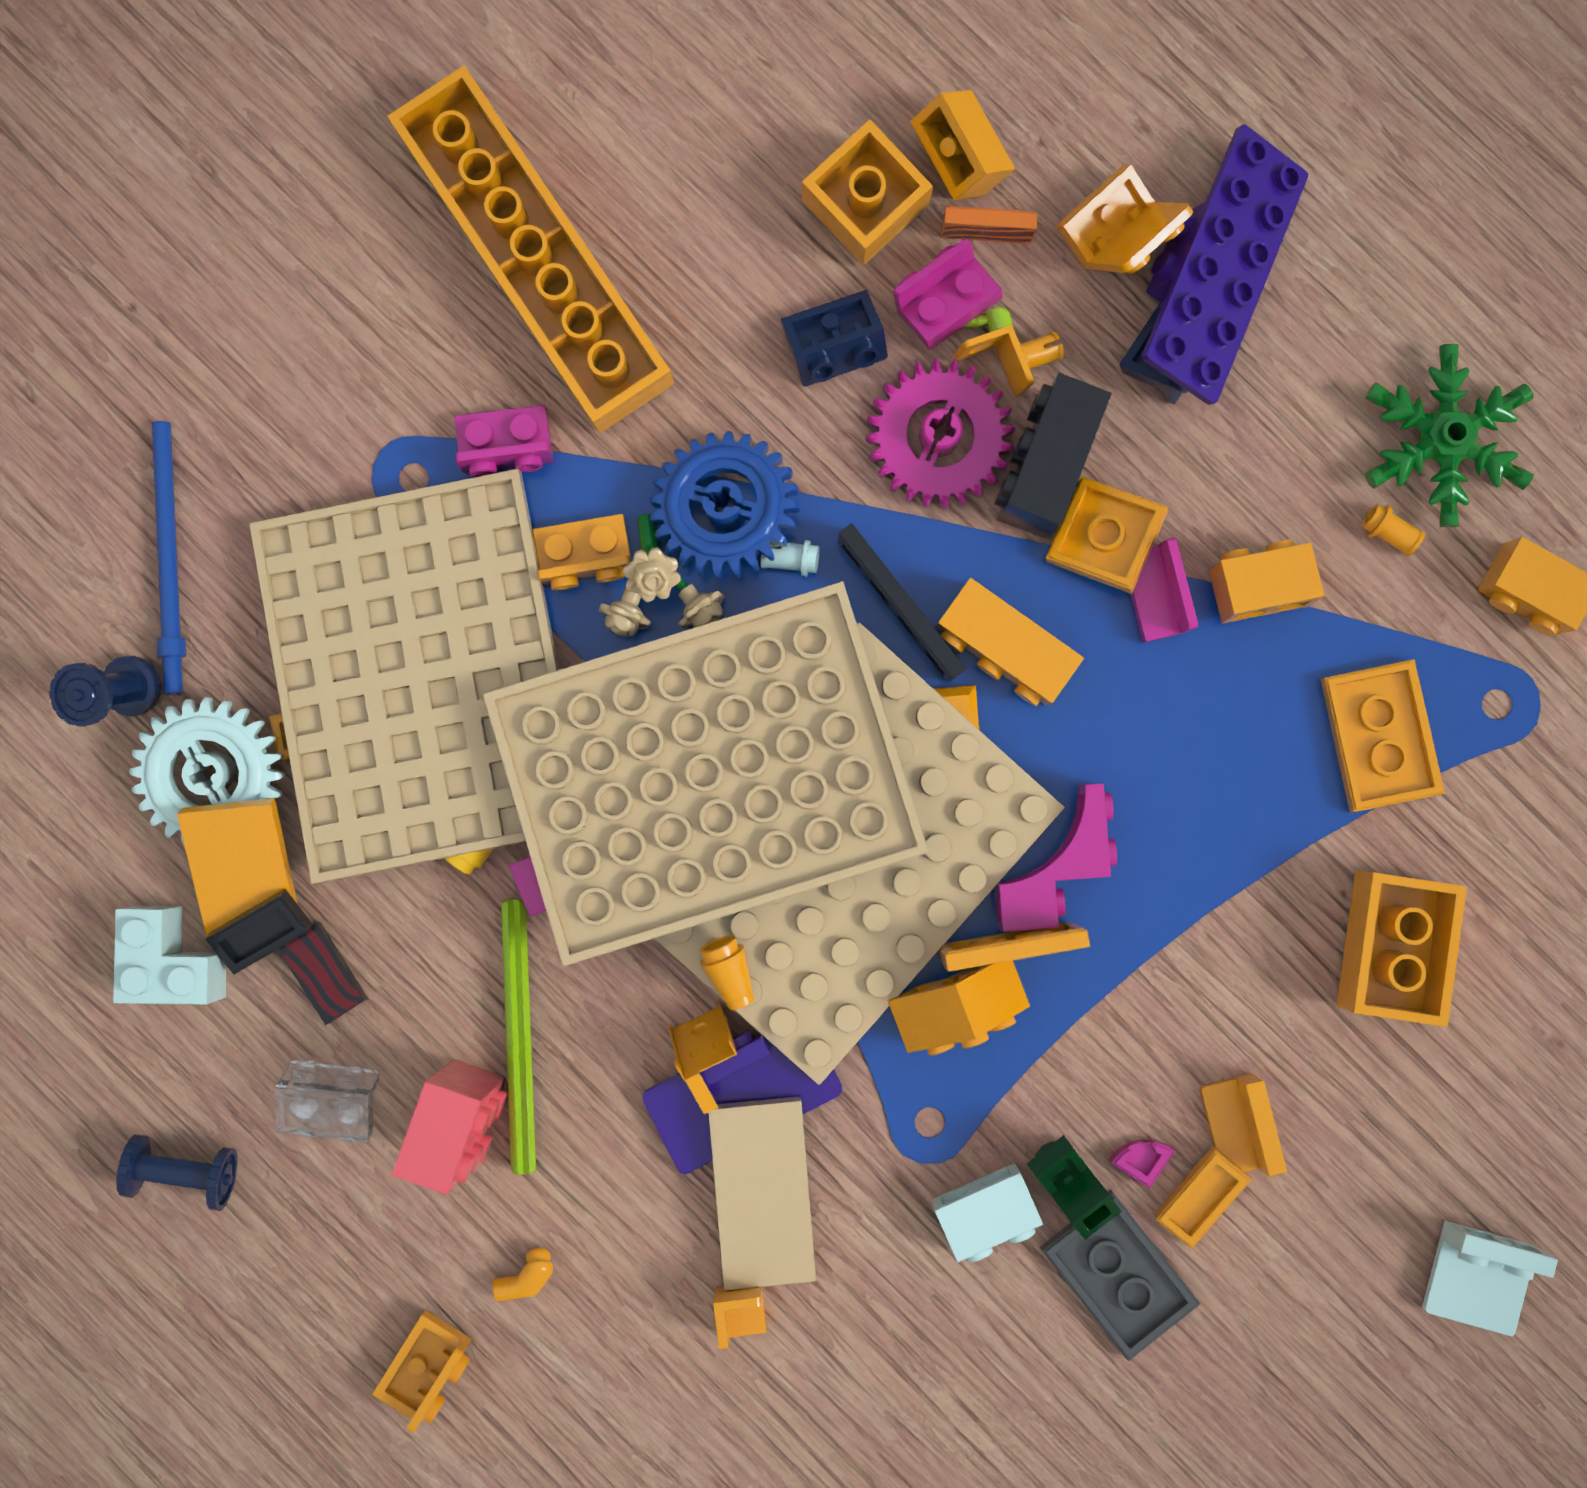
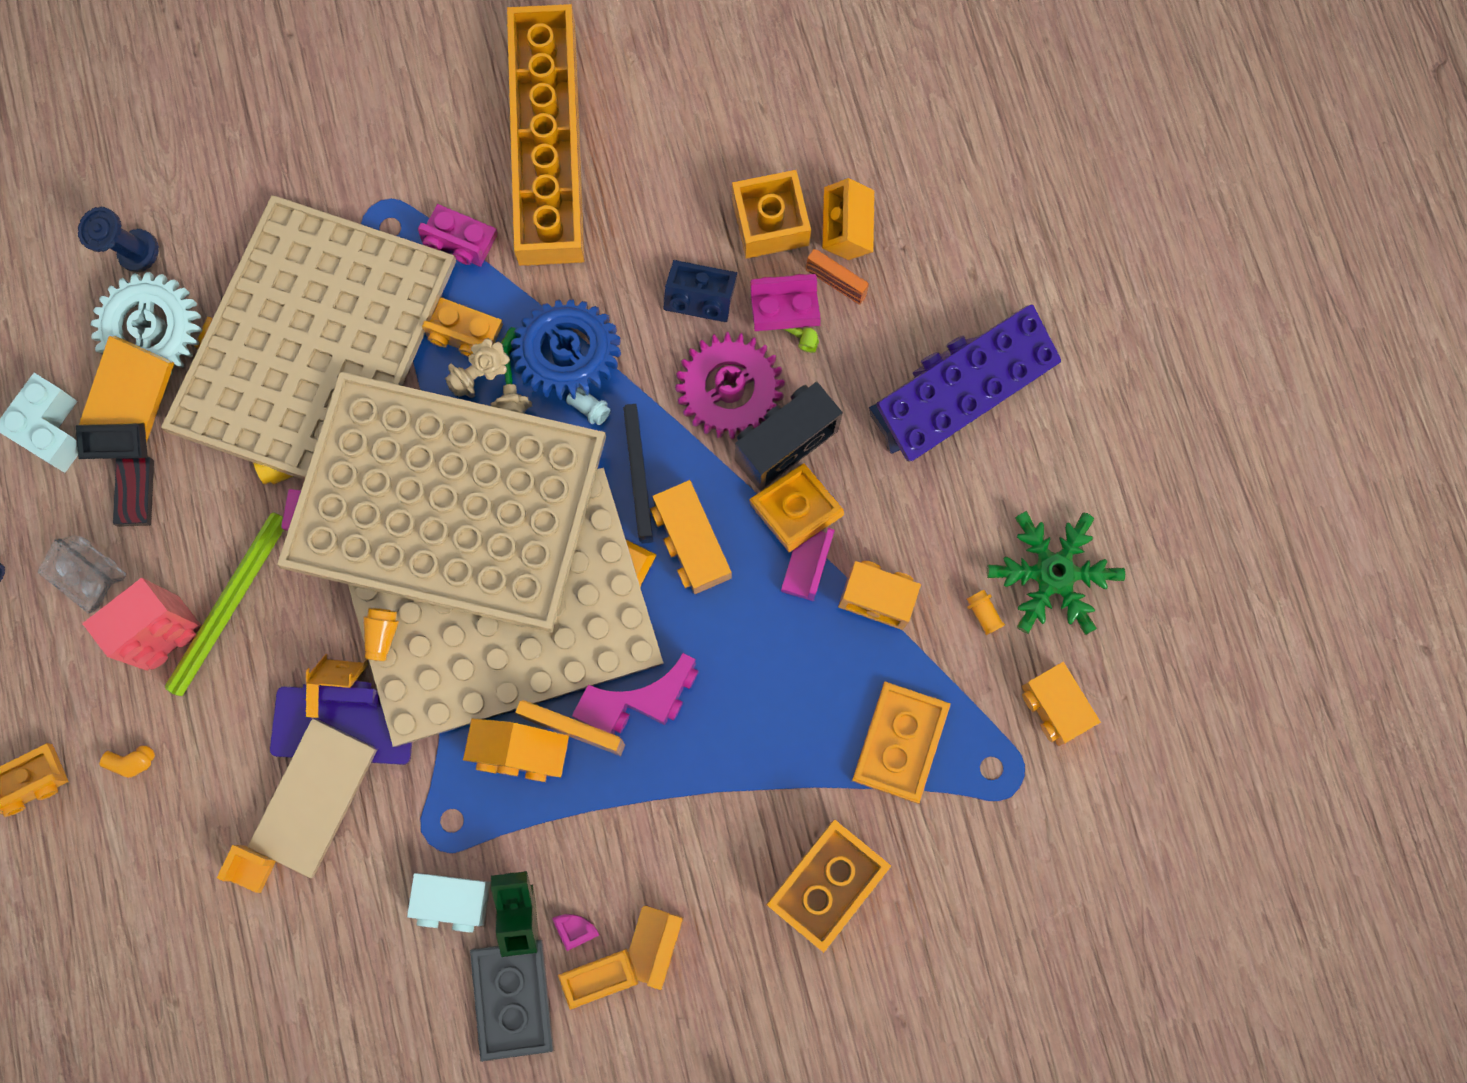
camera: 25 degrees right, 10 degrees down
(170, 645) = (177, 240): blue bar -> none
(1015, 357) = (807, 366): light orange bracket -> none
(1121, 224) = (918, 319): light orange bracket -> none

